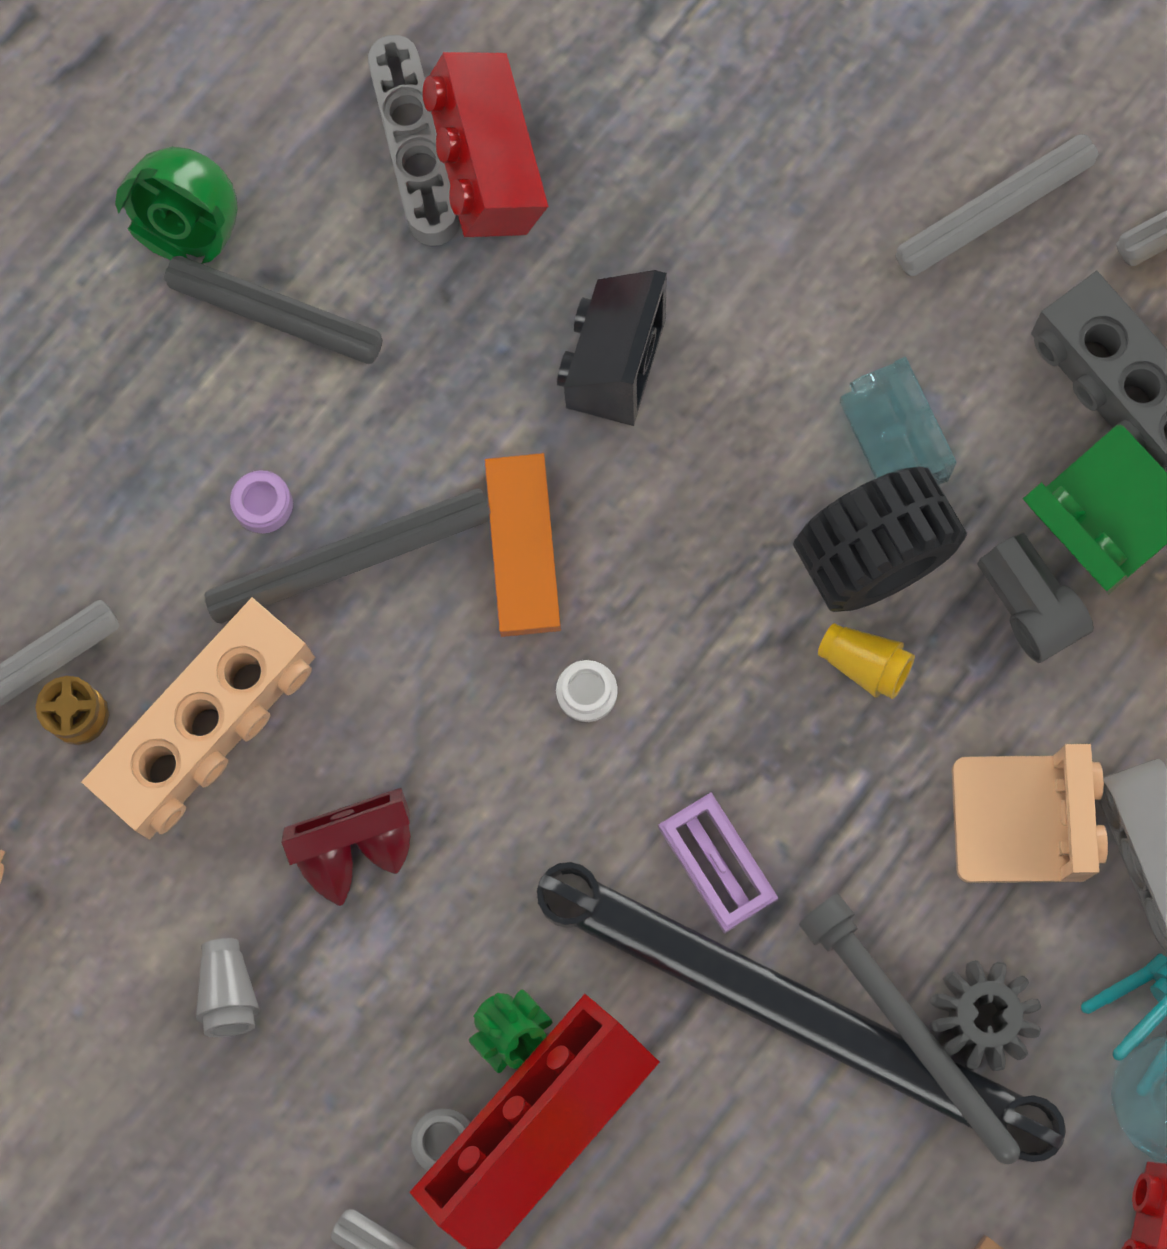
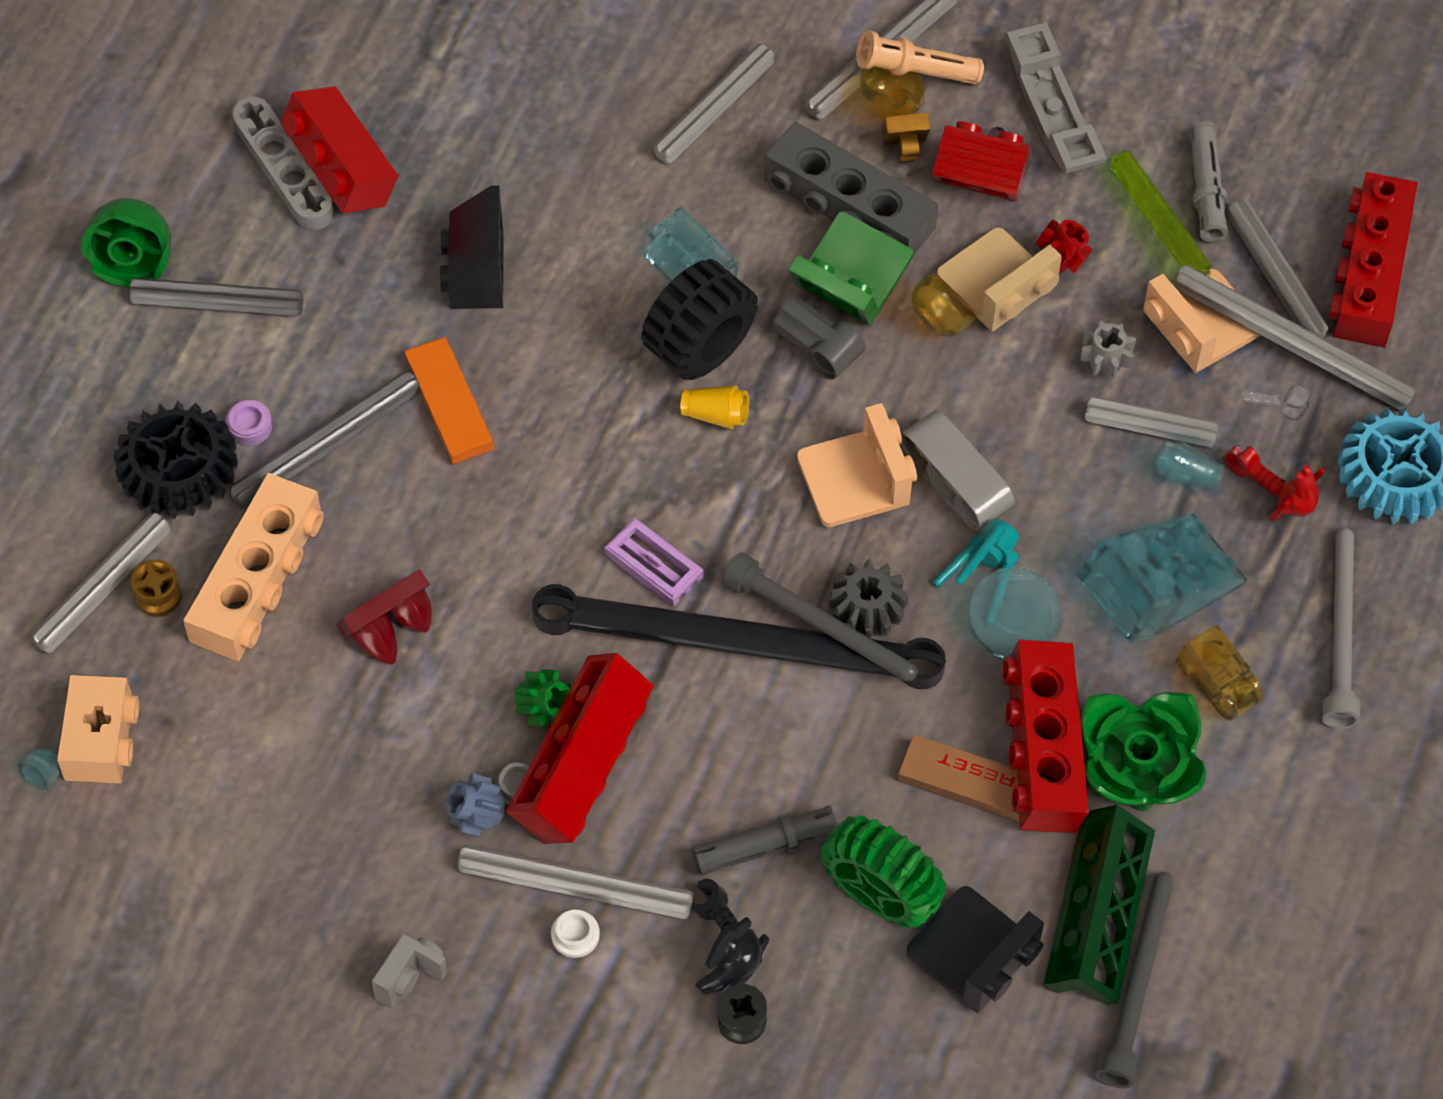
camera: 25 degrees left, 15 degrees down
(136, 554) = (168, 446): none -> black gear
(225, 991) = (330, 735): light grey cone -> none
(376, 1161) = (475, 804): none -> sand blue gear
(586, 691) = (525, 478): white plate -> none

